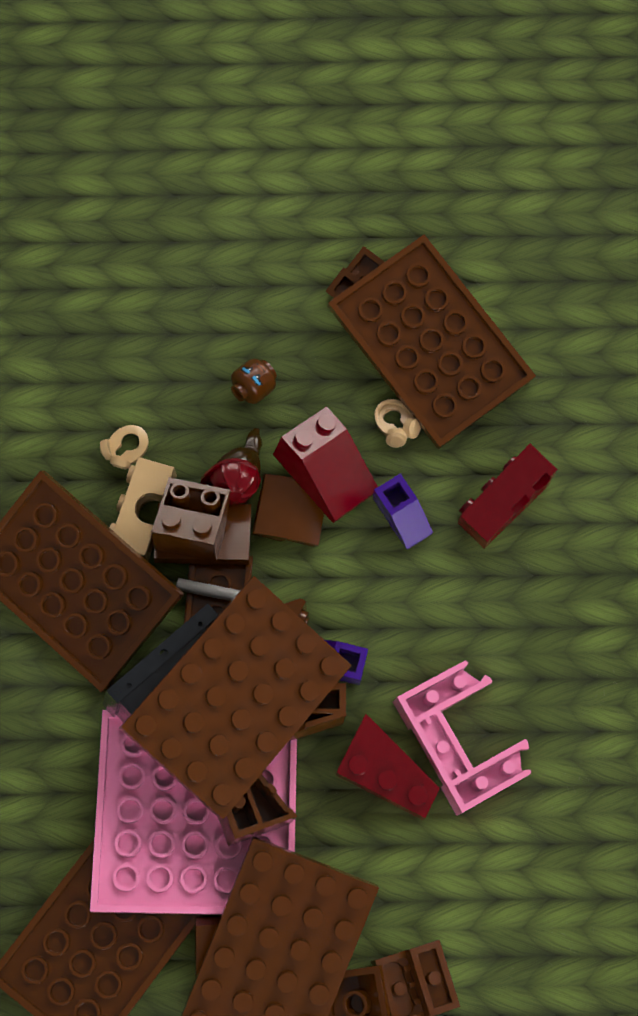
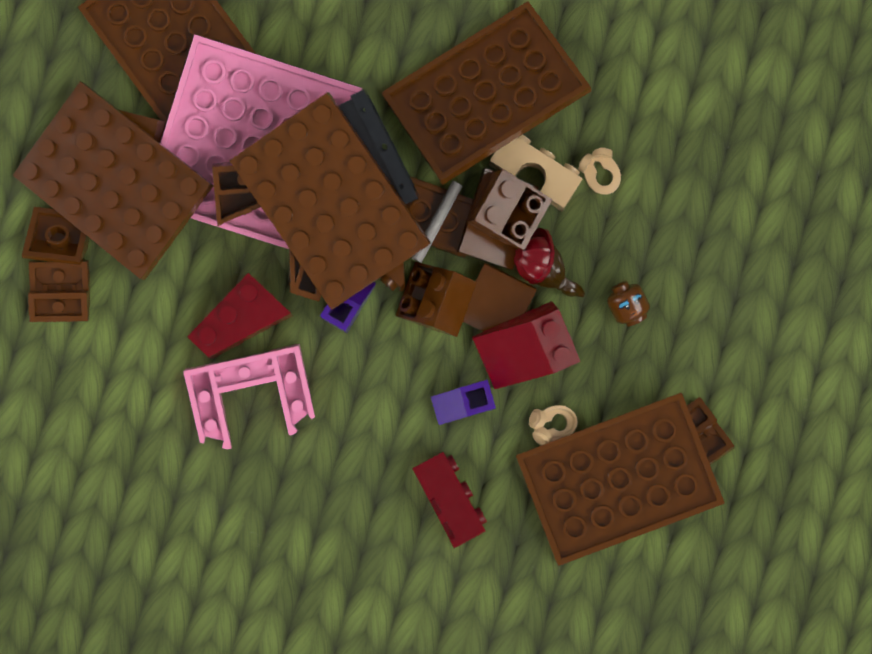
camera: 105 degrees right, 10 degrees up
(305, 570) = (436, 298): none -> reddish brown slope

